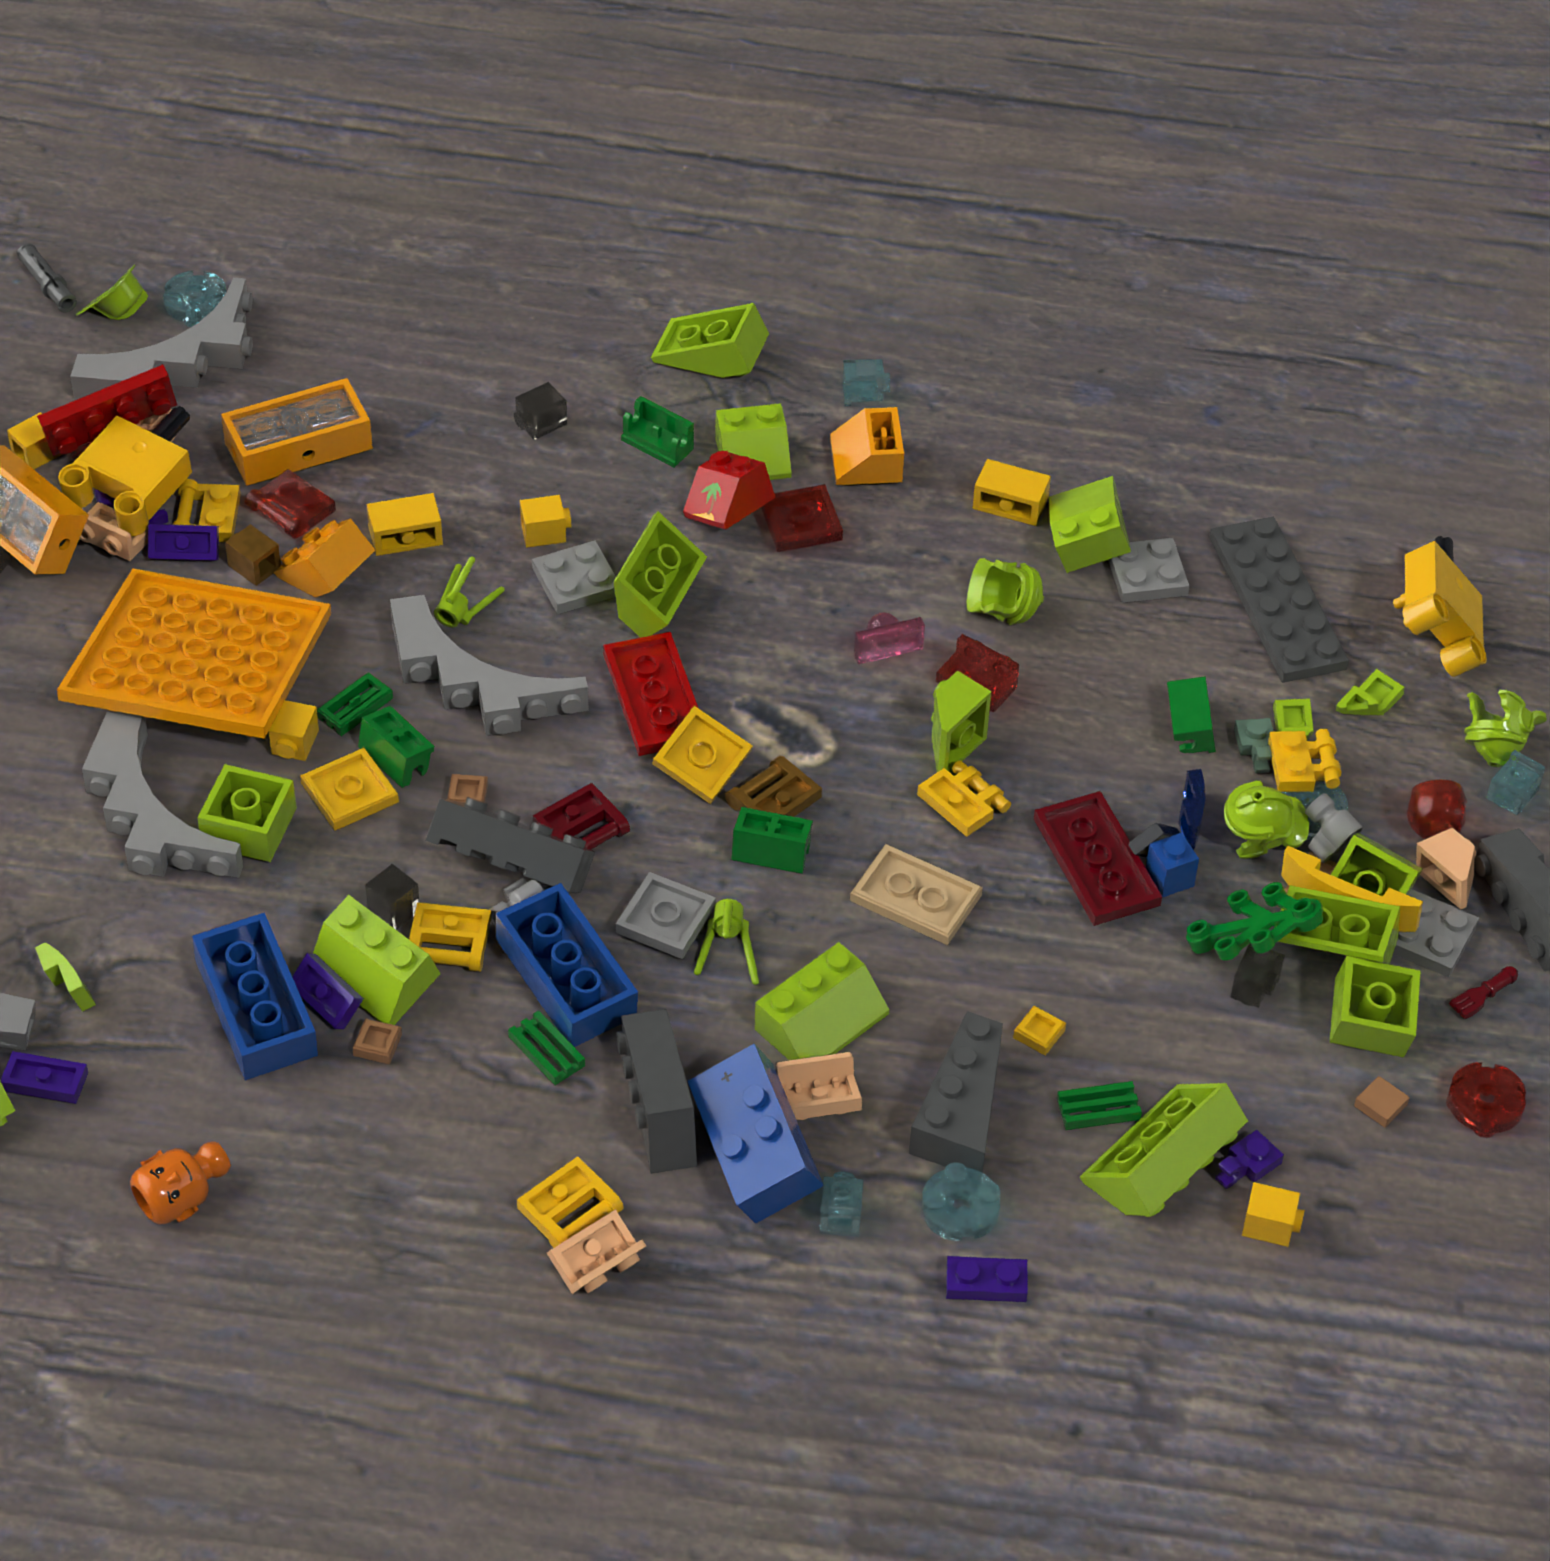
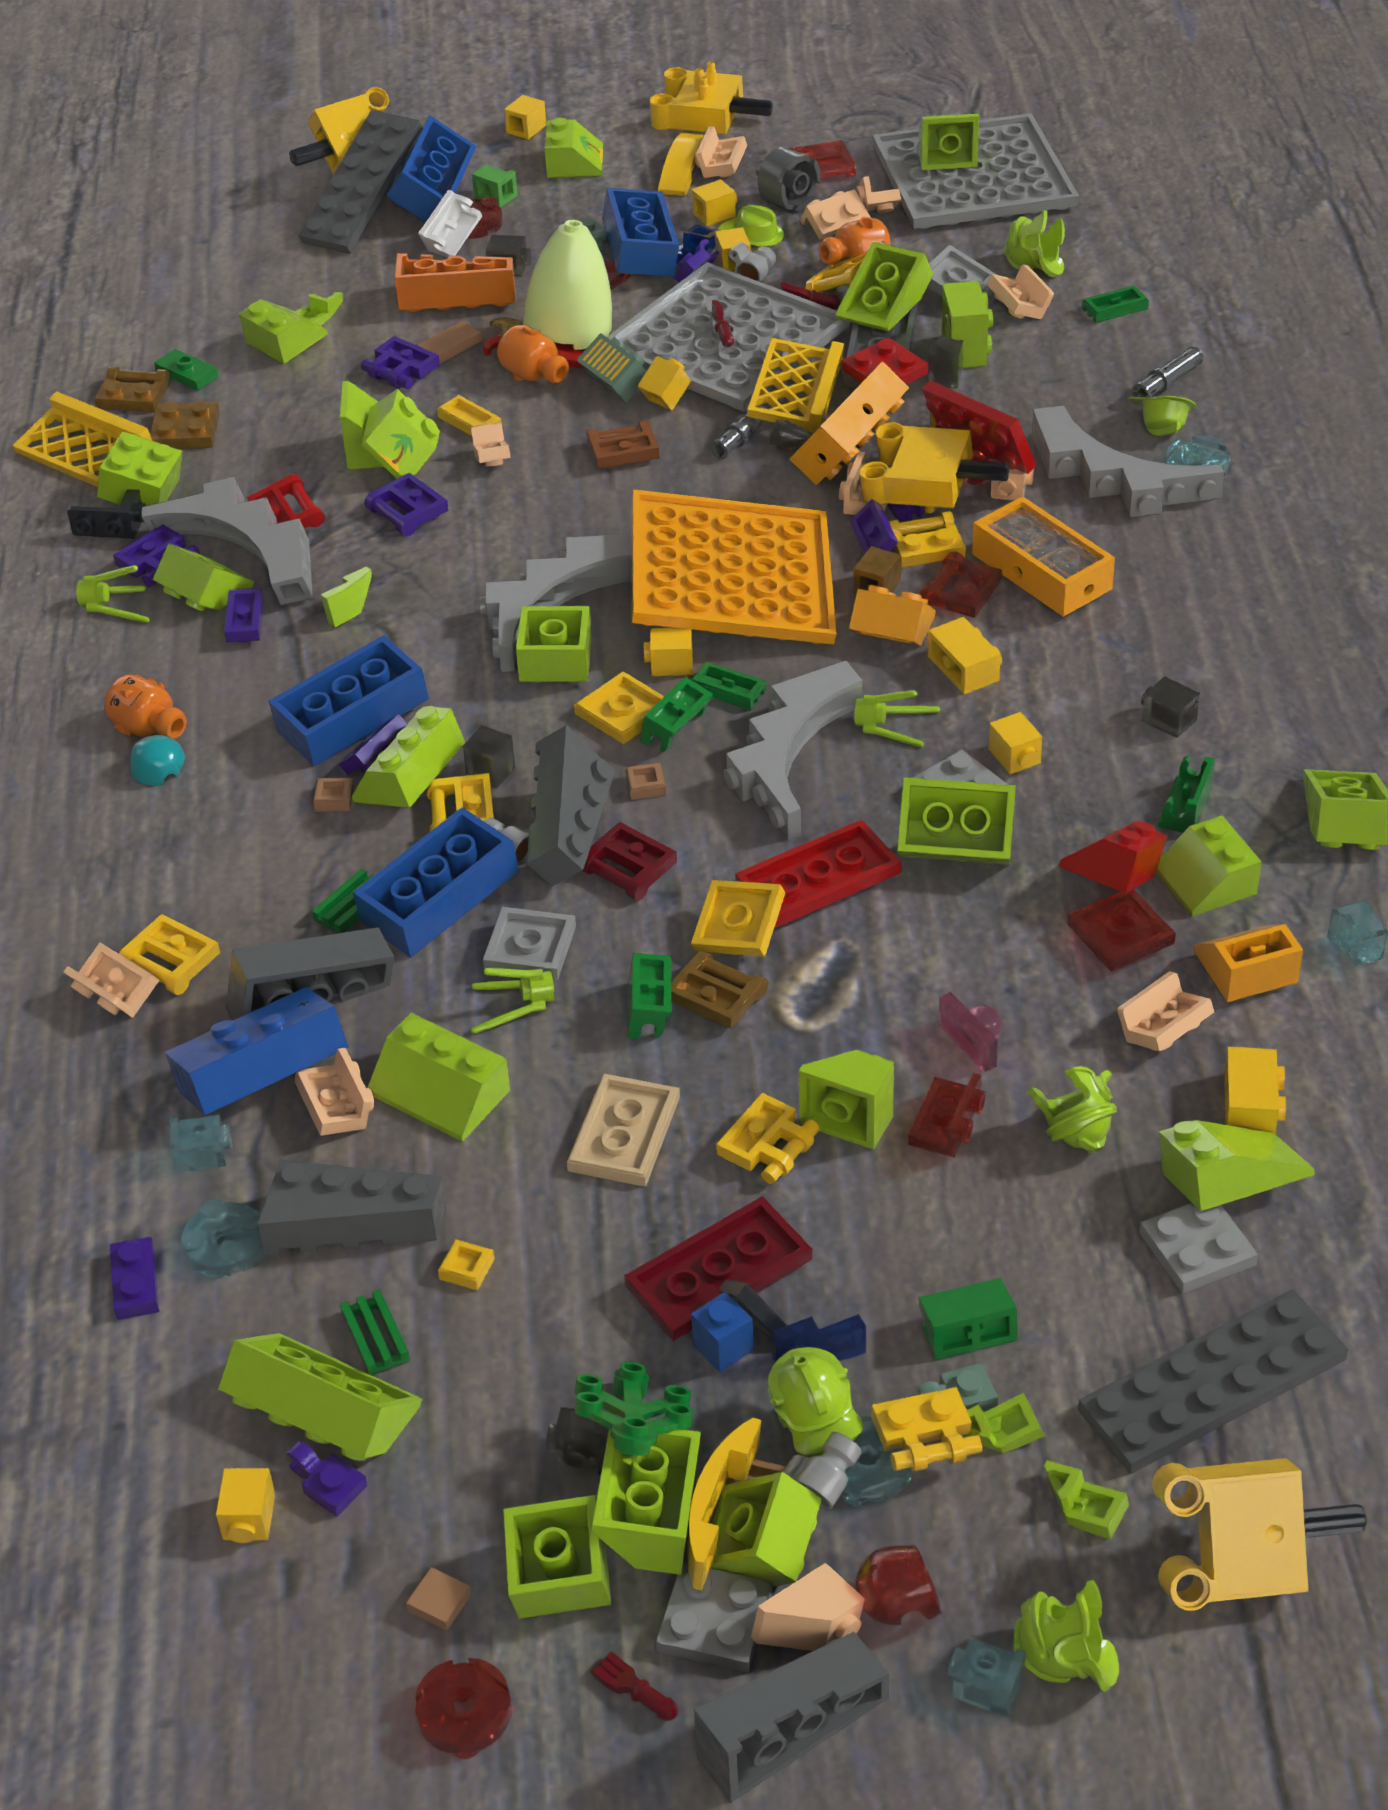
camera: 80 degrees right, 5 degrees down
(256, 1187) = (155, 759): none -> teal hair
(916, 518) = (1162, 1013): none -> light nougat bracket

